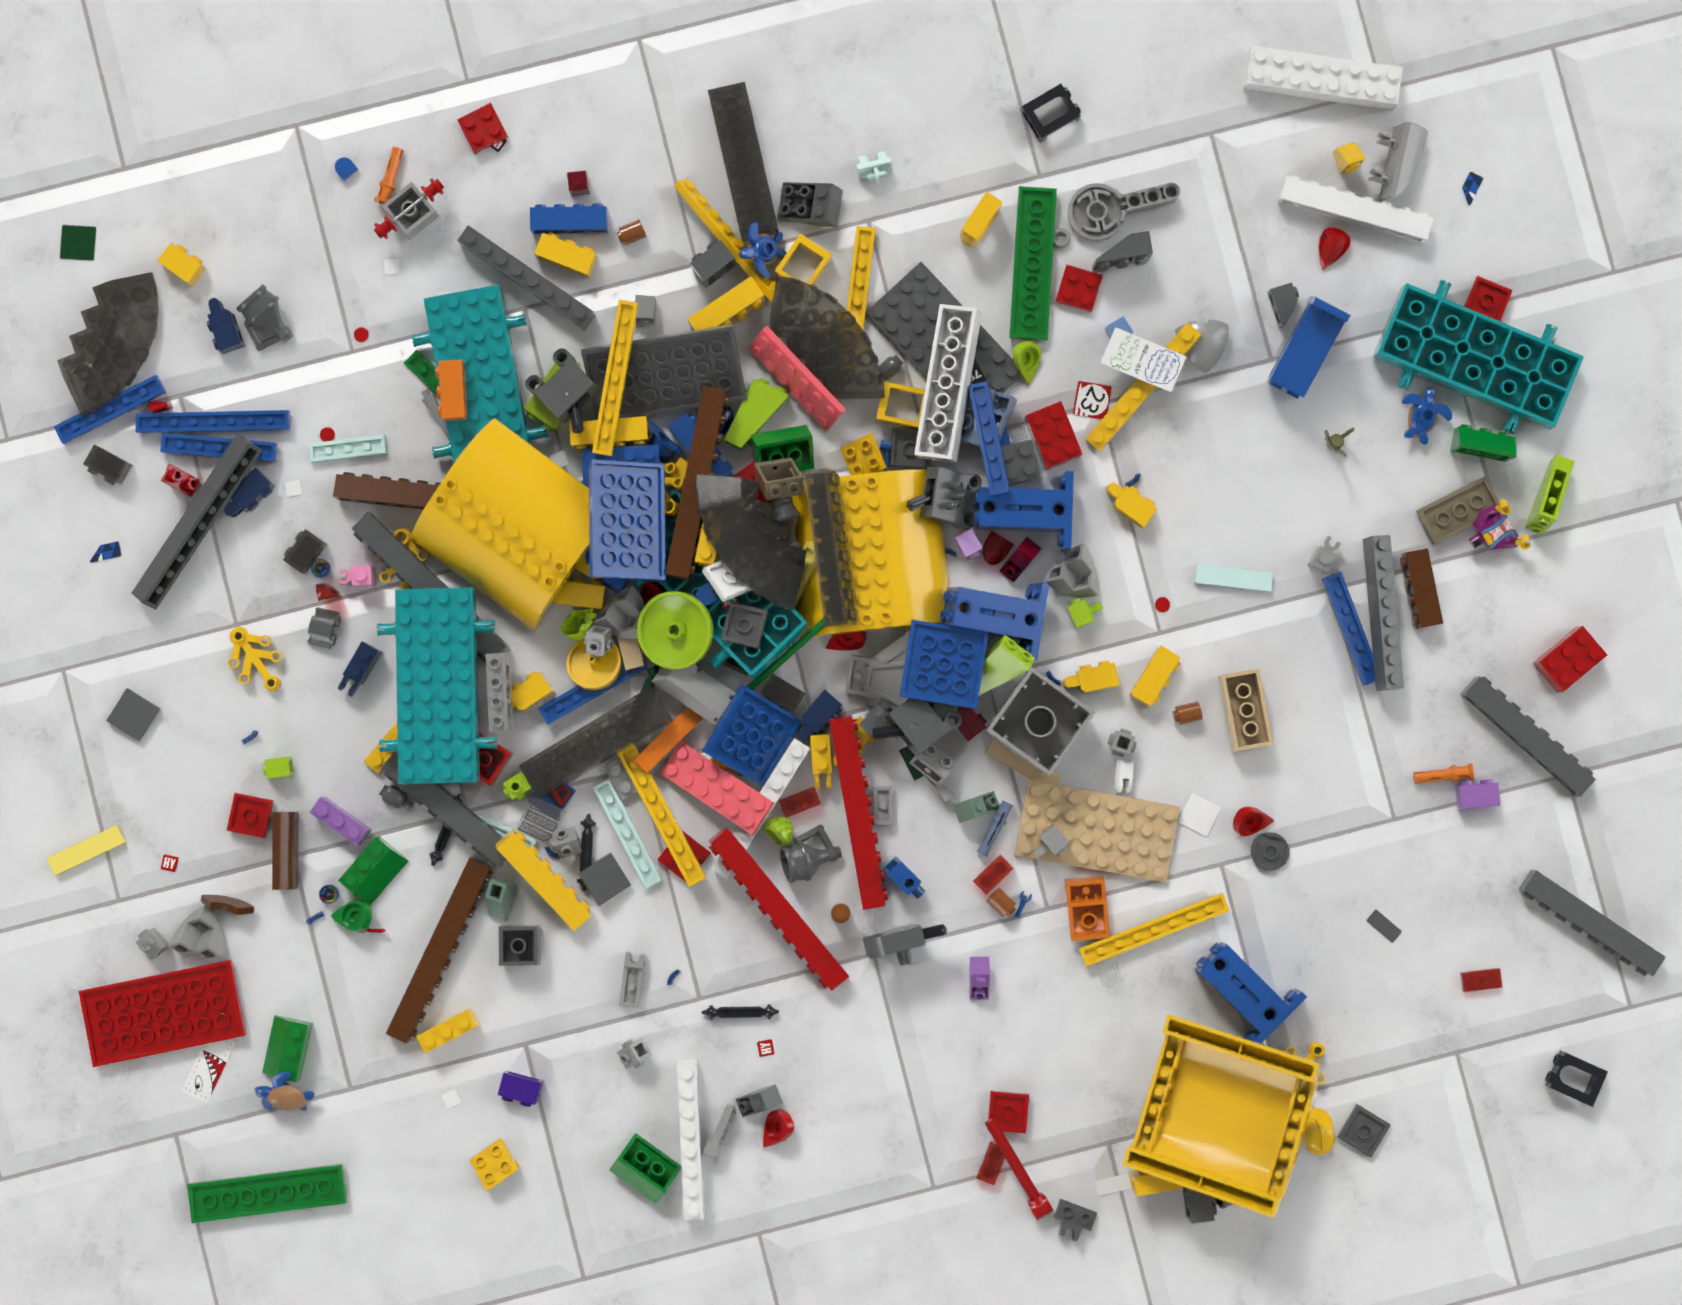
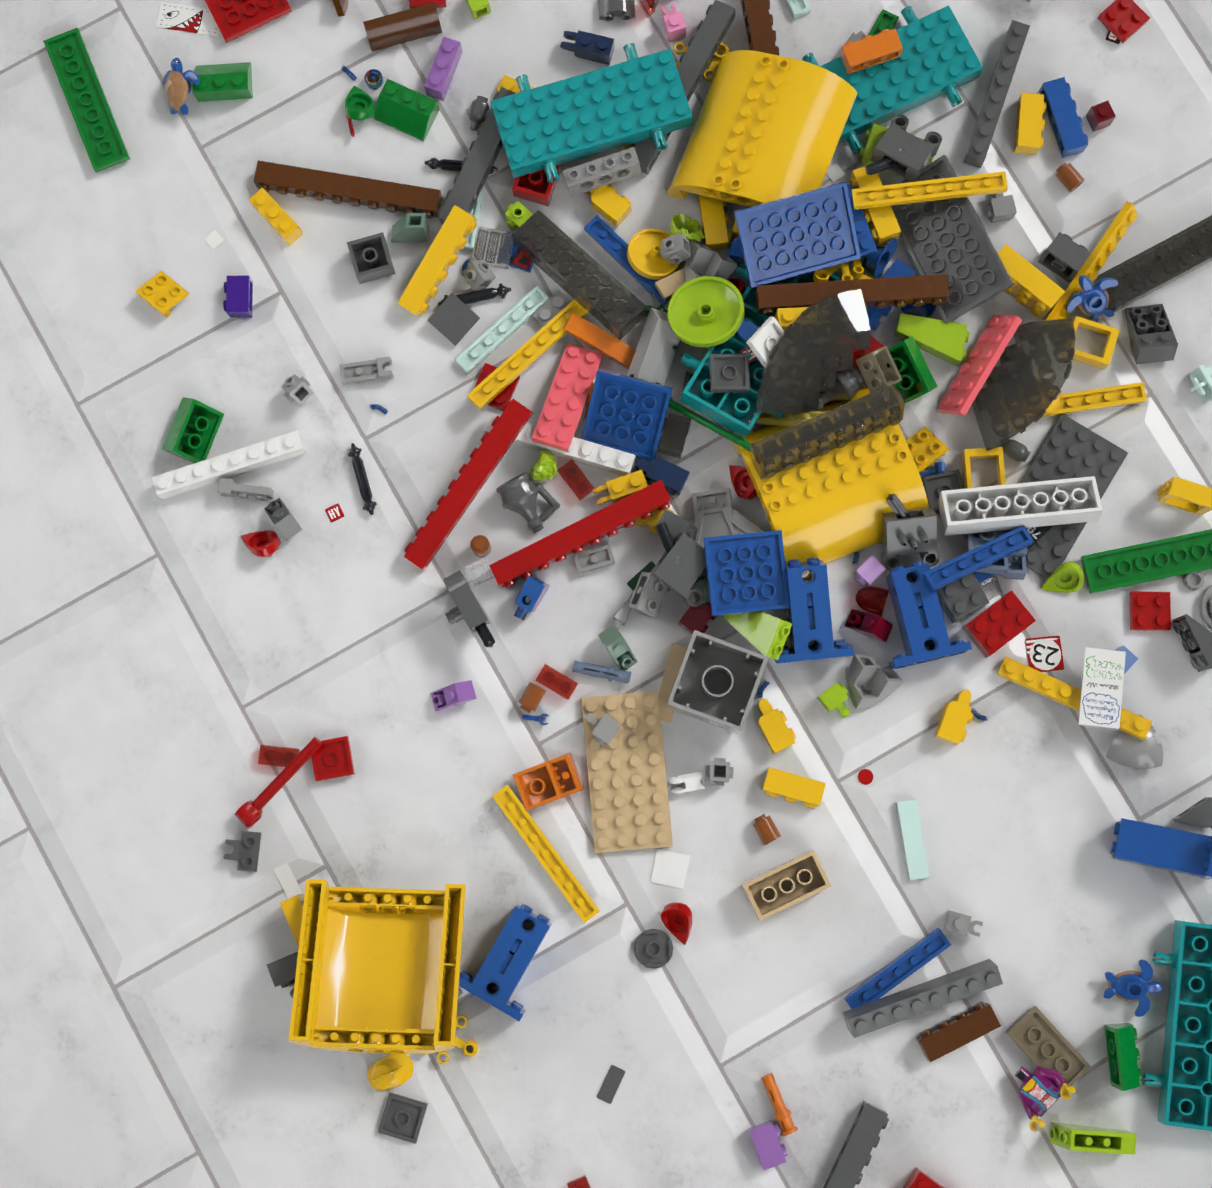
camera: 80 degrees right, 5 degrees down
(1336, 441) = (1080, 905): olive plant -> none

